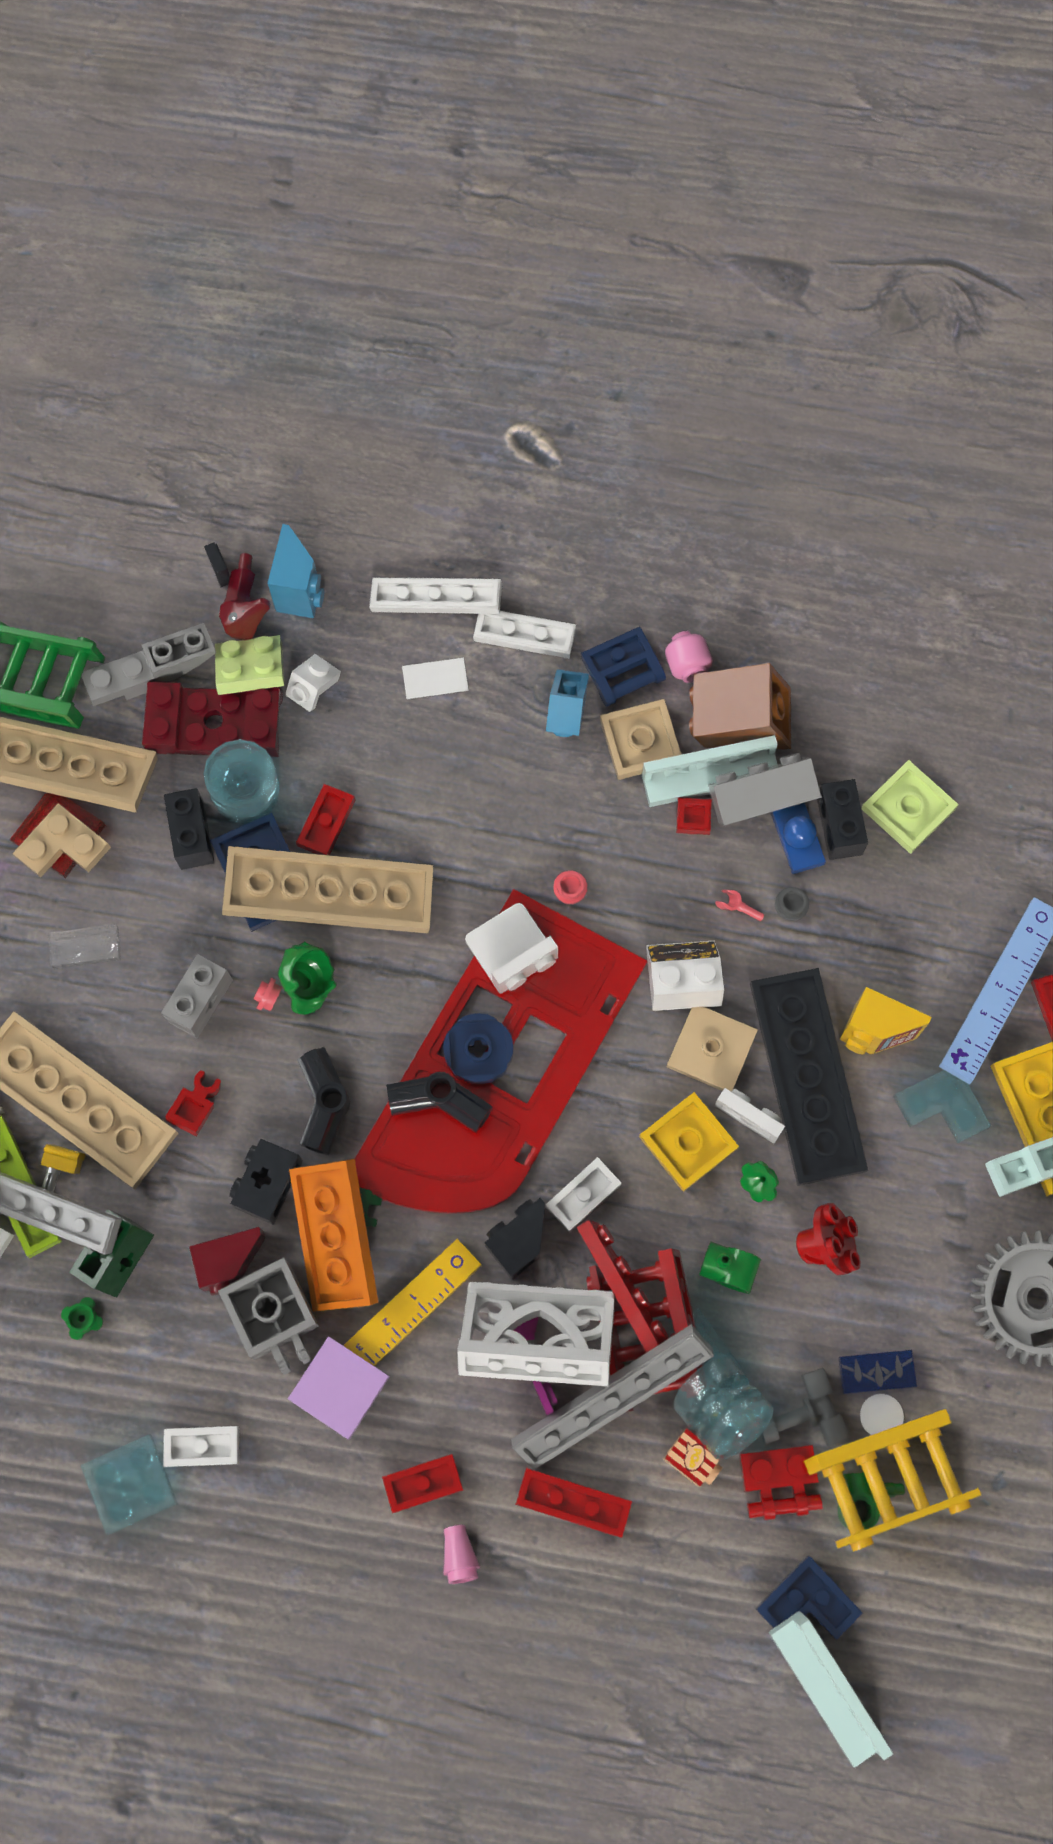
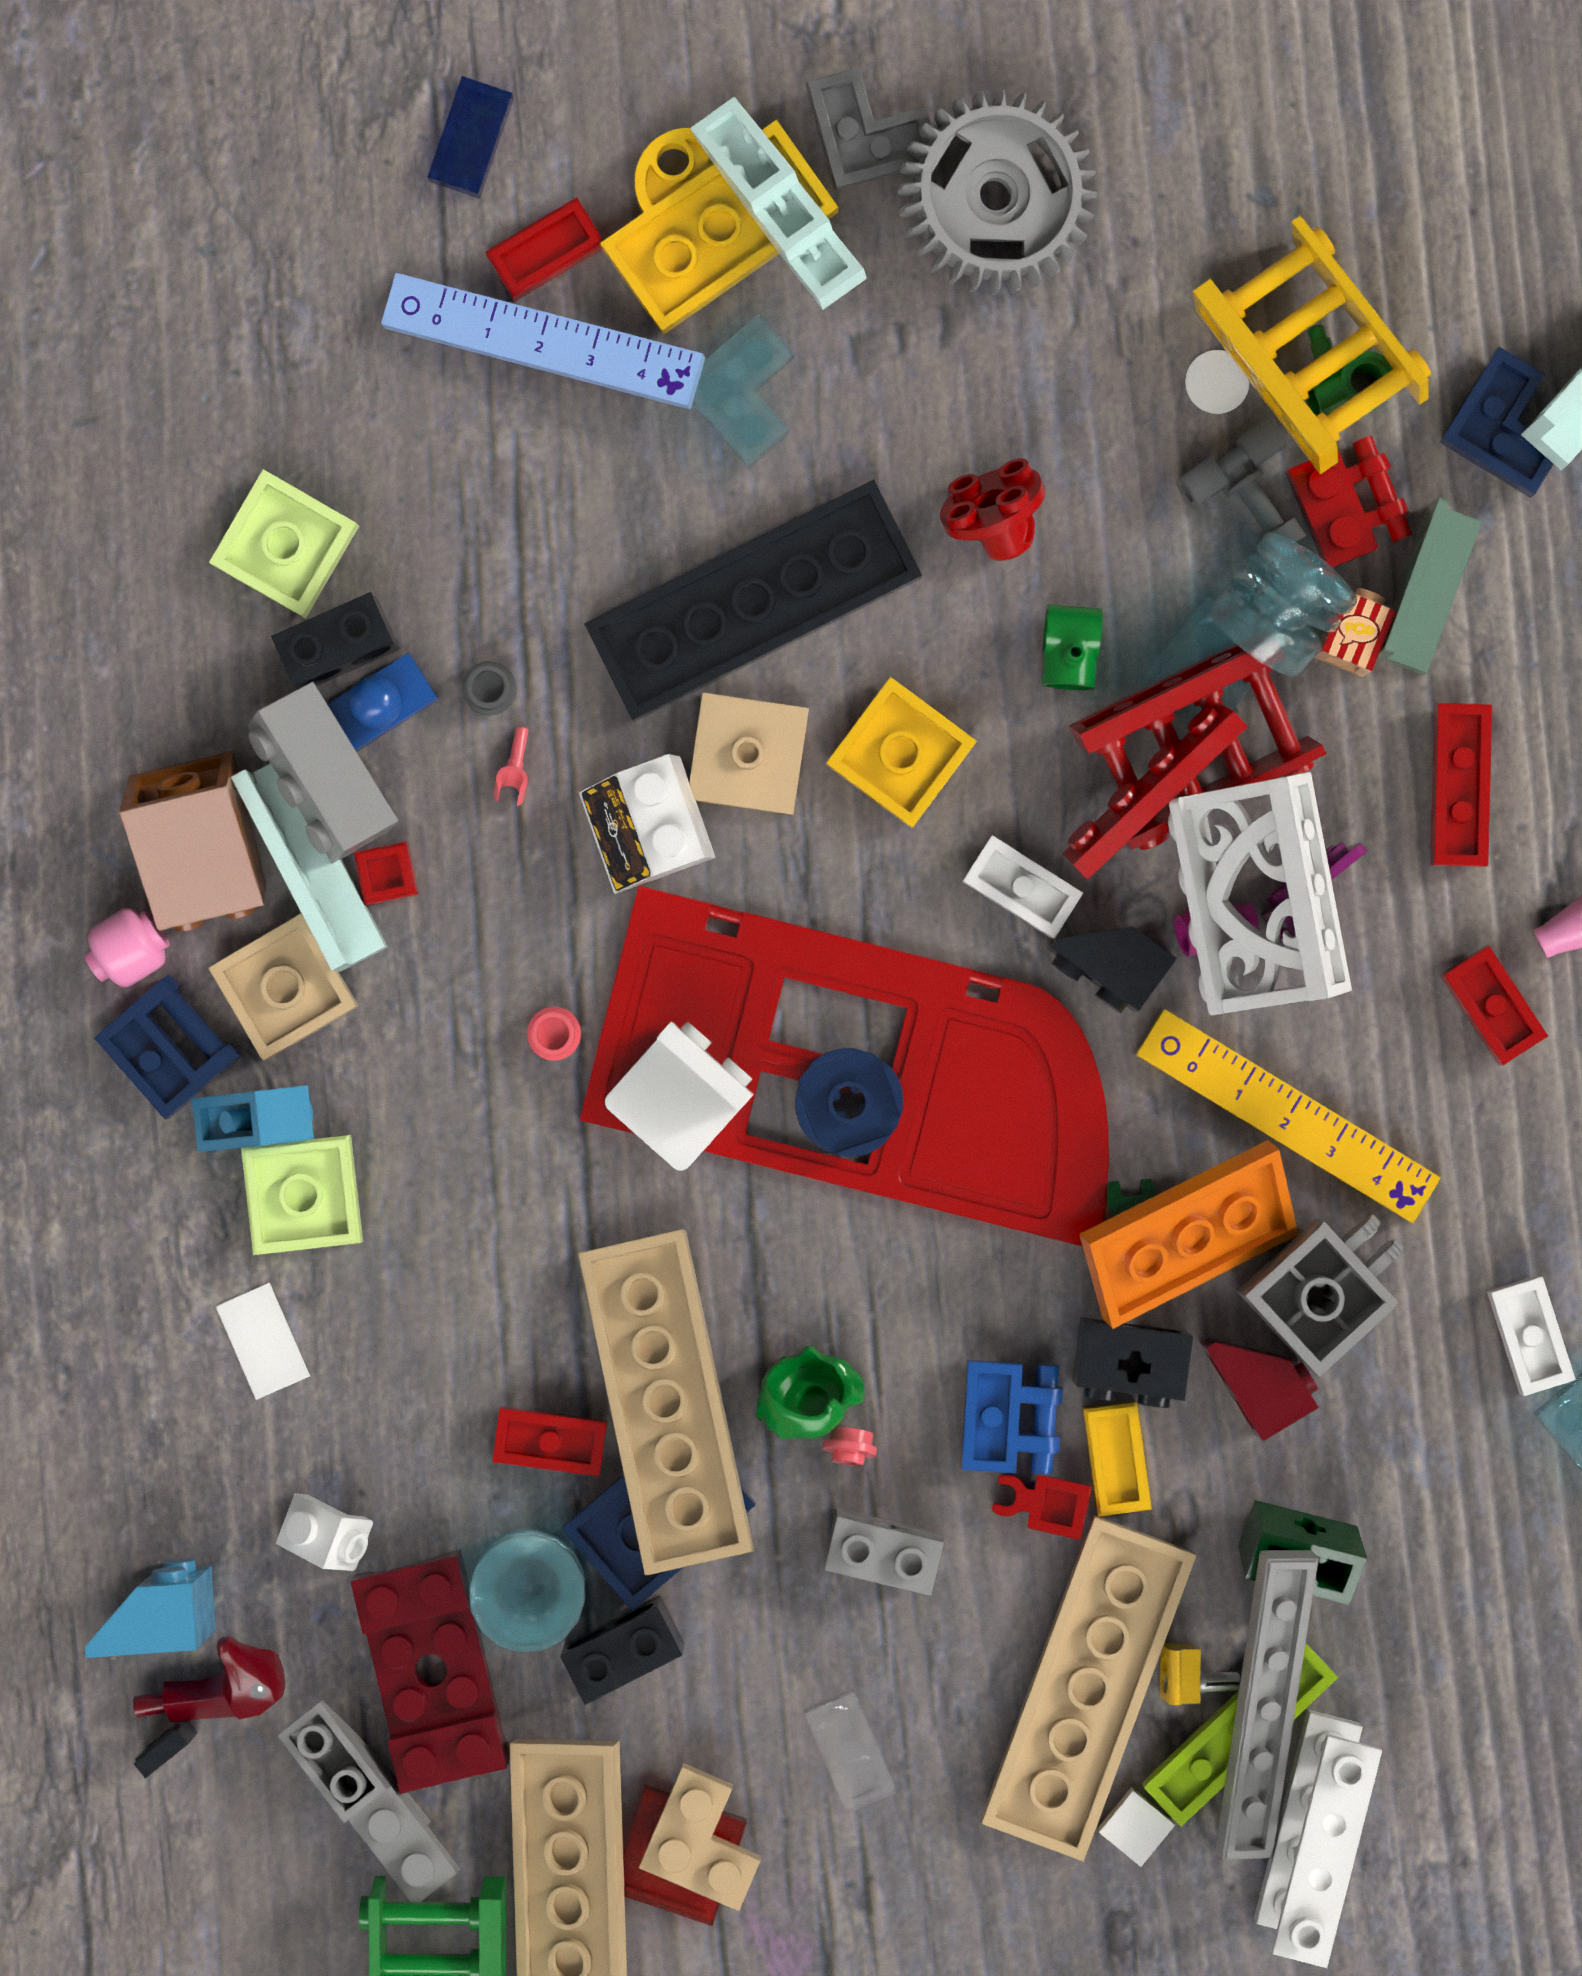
camera: 110 degrees left, 15 degrees up
(72, 1314) = (1415, 1570): green plate -> none
(208, 1157) = (1116, 1458): none -> yellow tile
(249, 664) = (326, 1641): yellowish green plate -> none
(256, 1086) = (993, 1414): none -> blue plate
(323, 1121) = (1020, 1302): black piece -> none
(338, 1388) = (1398, 1163): lavender tile -> none
(436, 595) = (124, 1379): white tile -> none
(459, 1103) = (946, 1171): black piece -> none
(514, 719) = (302, 1195): none -> yellowish green plate
(525, 633) = (148, 1220): white tile -> none
(605, 1403) = (1301, 749): light grey tile -> none
(711, 1518) = (1429, 586): none -> sand green panel
(759, 1181) = (932, 633): green plant -> none
(760, 1121) = (828, 693): white plate -> none
(877, 1372) = (1159, 401): clear blue tile -> none
(881, 1023) = (652, 511): yellow slope -> none

